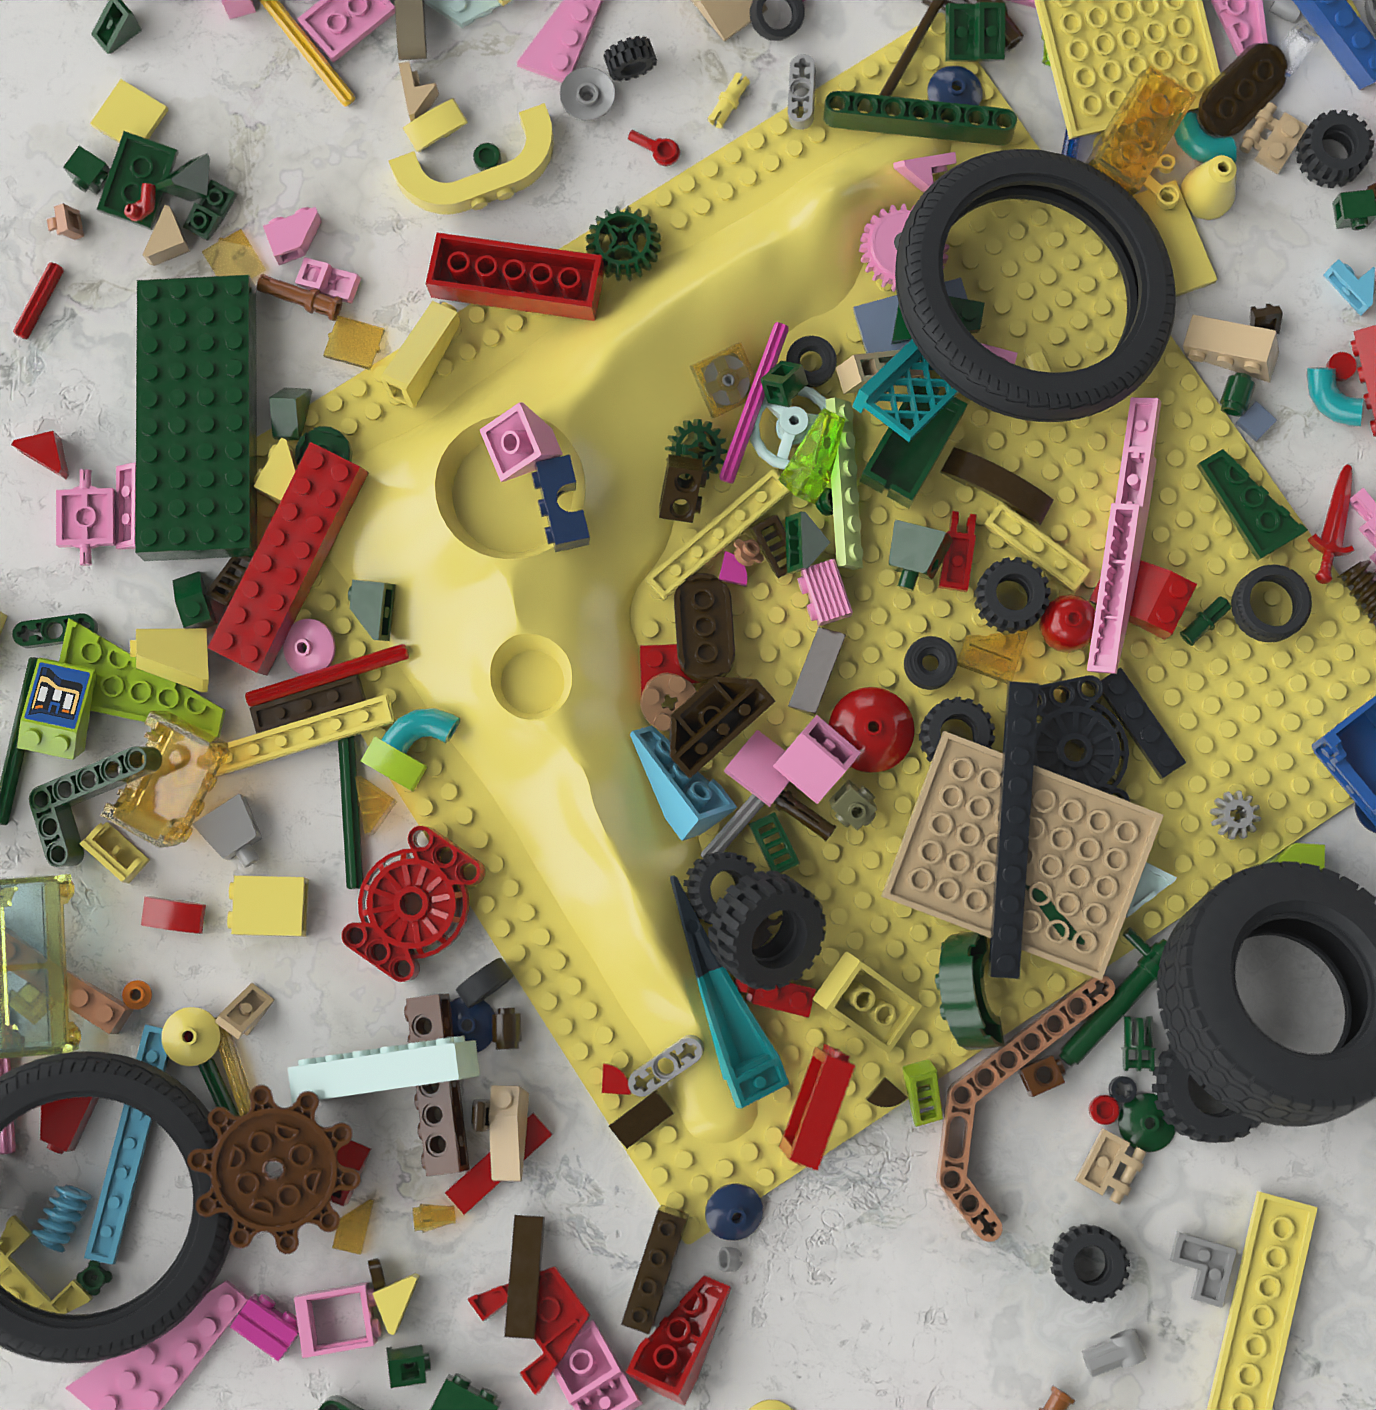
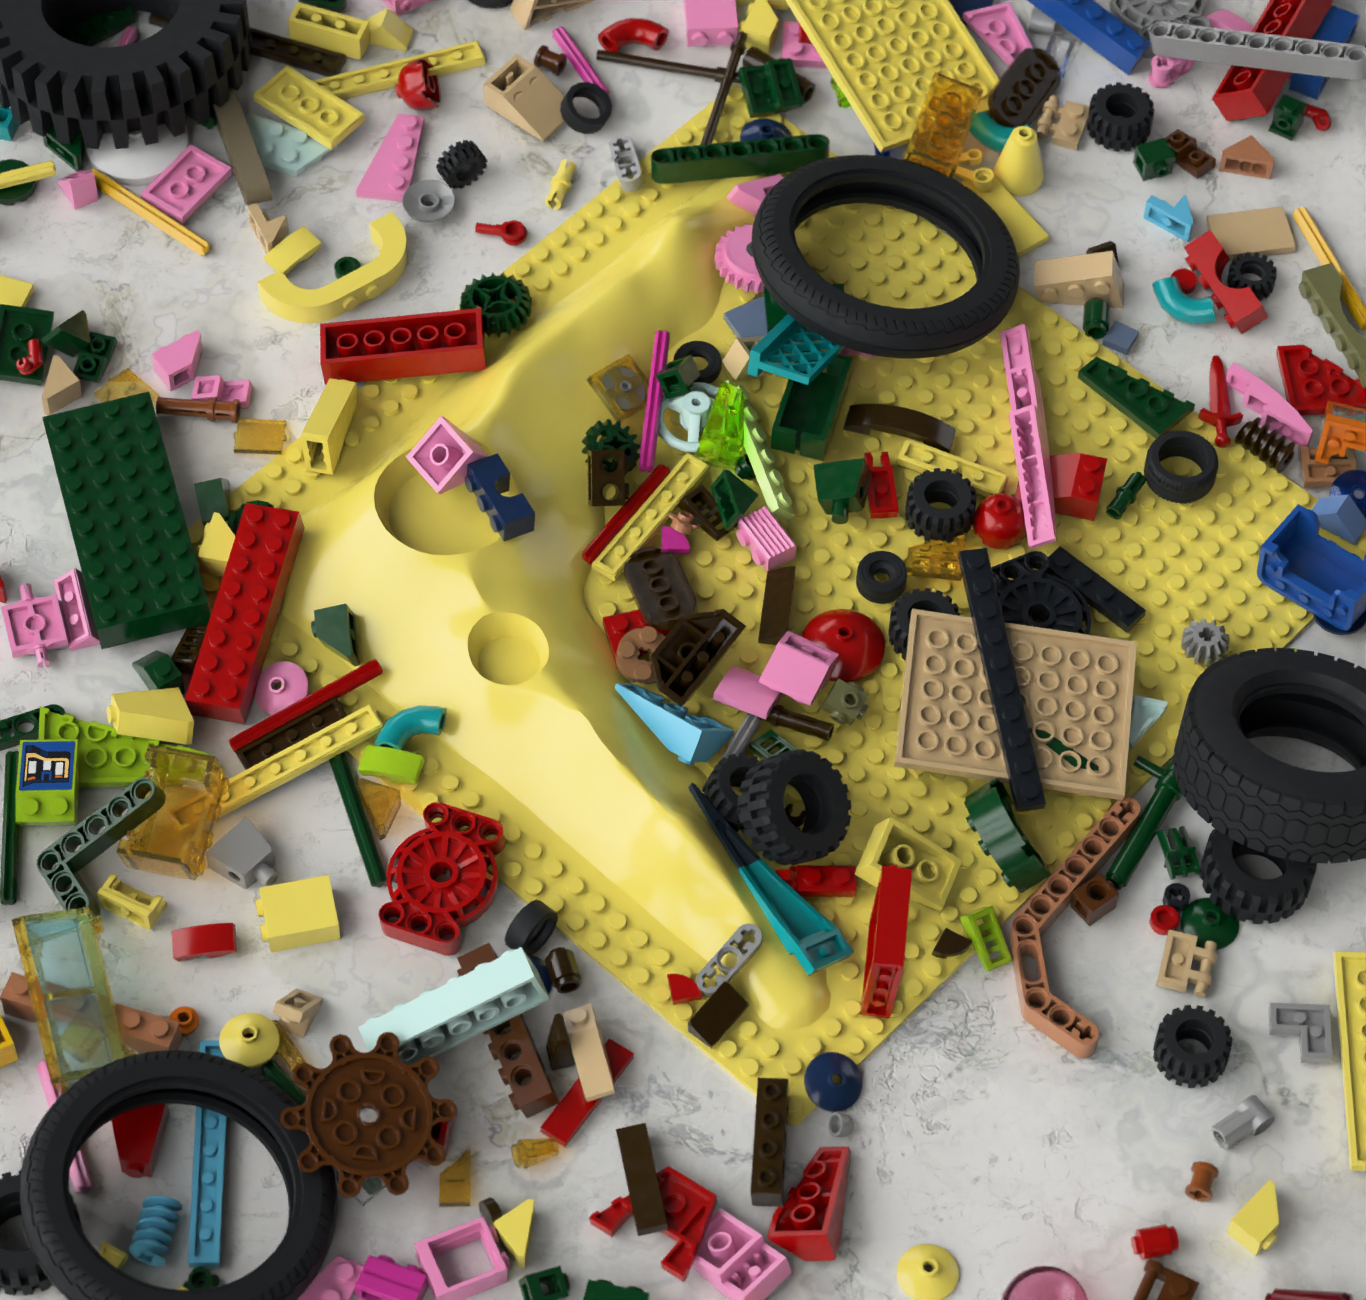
camera: 15 degrees left, 25 degrees down
(689, 530) = (625, 513): none -> red axle

